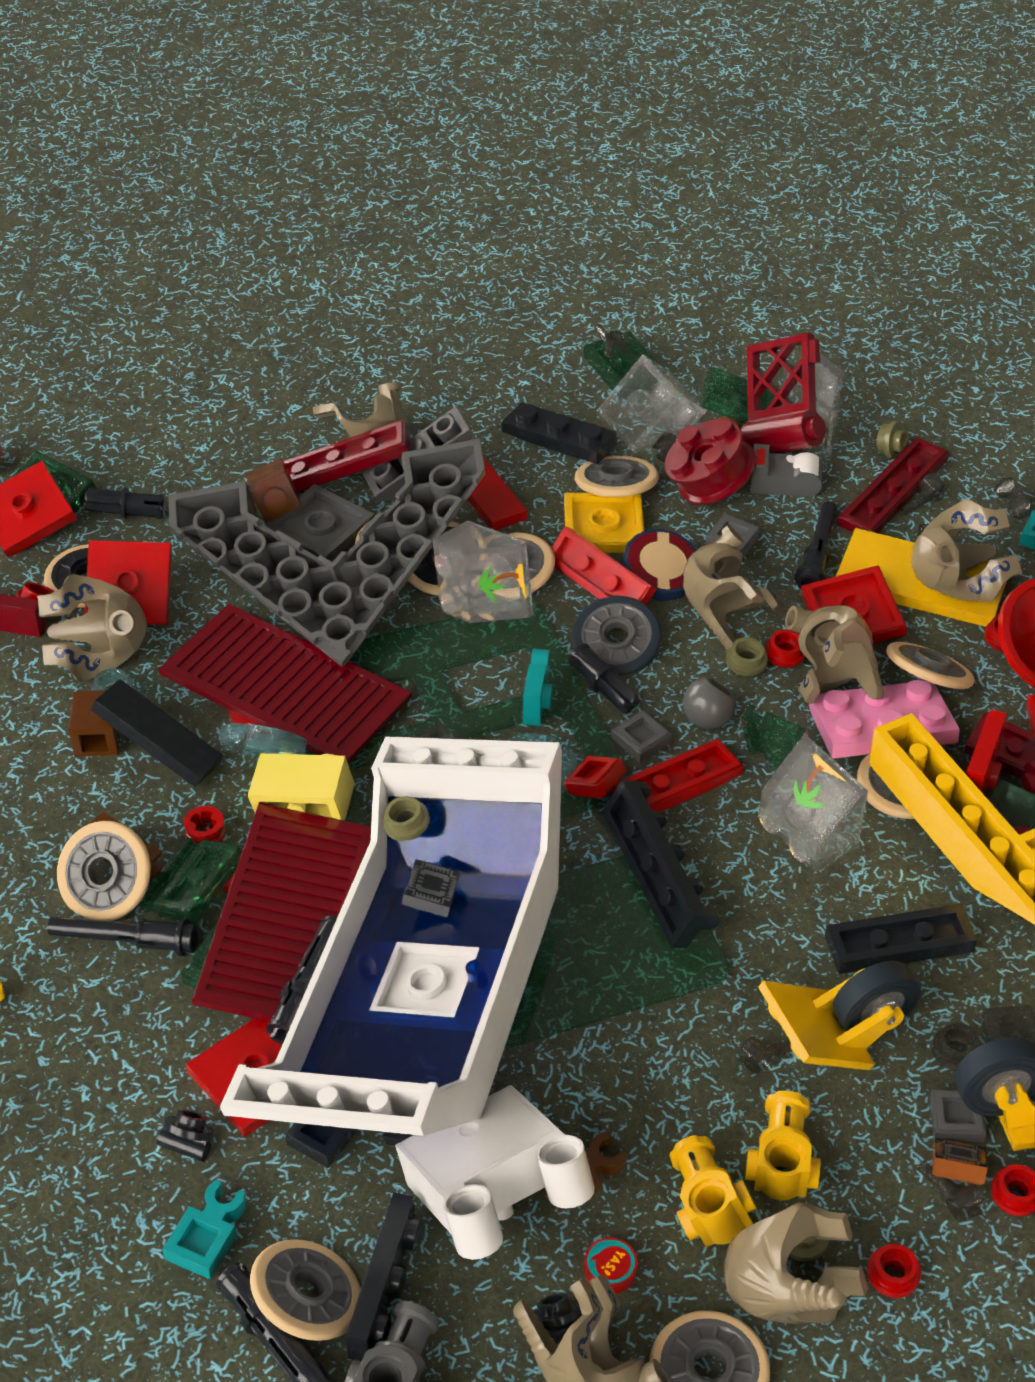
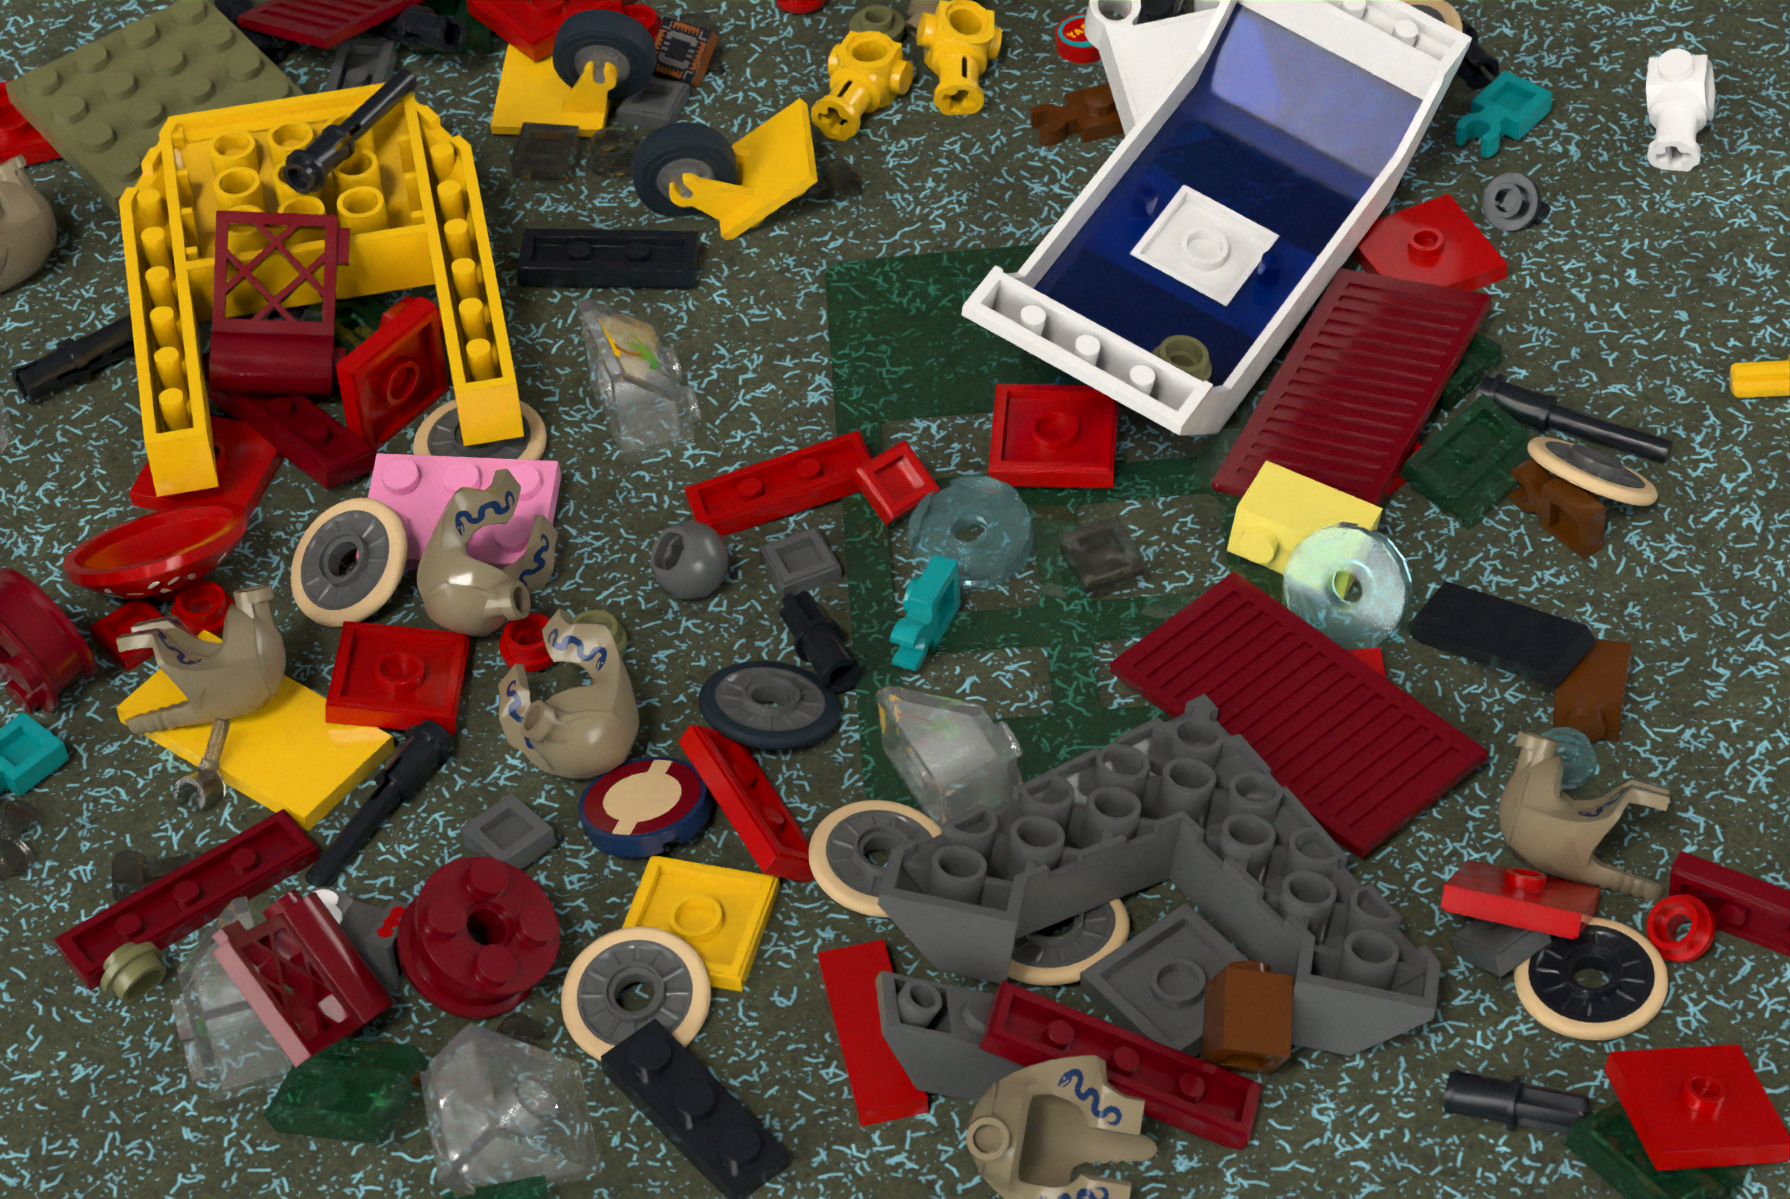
camera: 160 degrees left, 0 degrees up
(45, 1248) = (1678, 105): none -> white connector
(202, 815) = (1451, 550): red bush -> none
(294, 990) = (1376, 245): black pin -> none
(431, 888) = (1166, 315): tile -> none
(657, 864) = (865, 353): black hinge -> none
(770, 735) = (634, 458): clear green plate -> none

